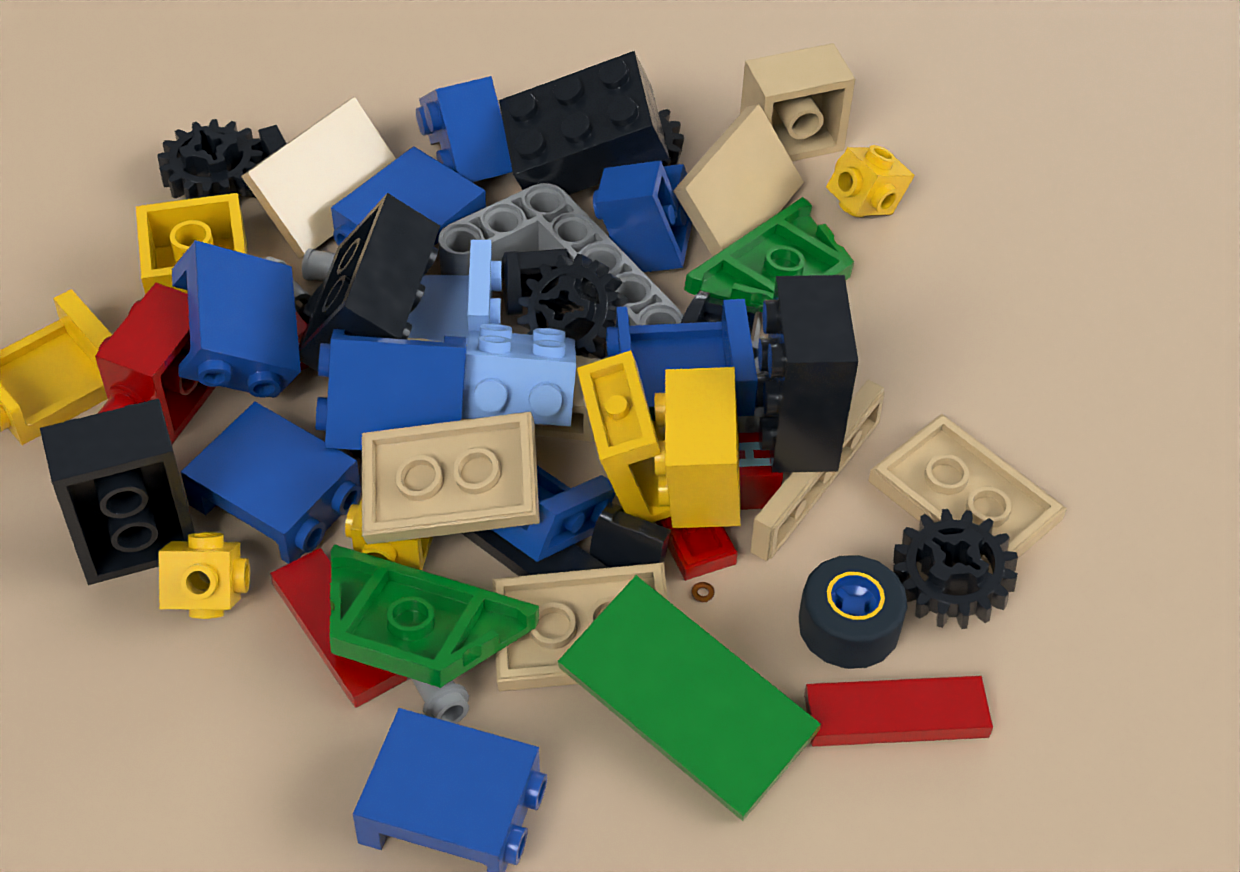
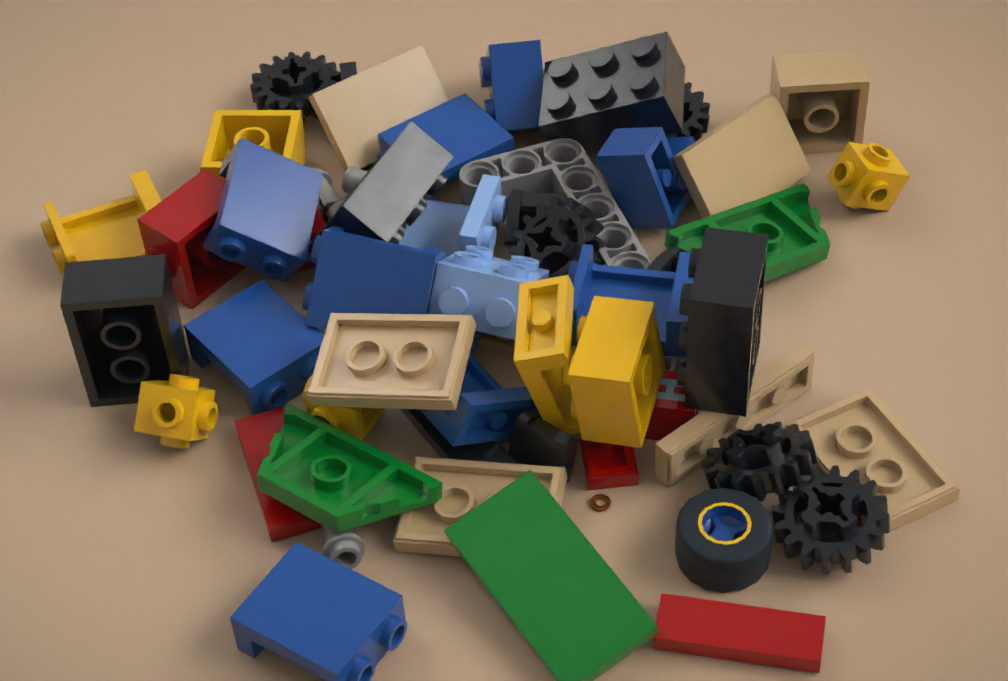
camera: 20 degrees right, 5 degrees down
(866, 517) = (761, 460): none -> black gear

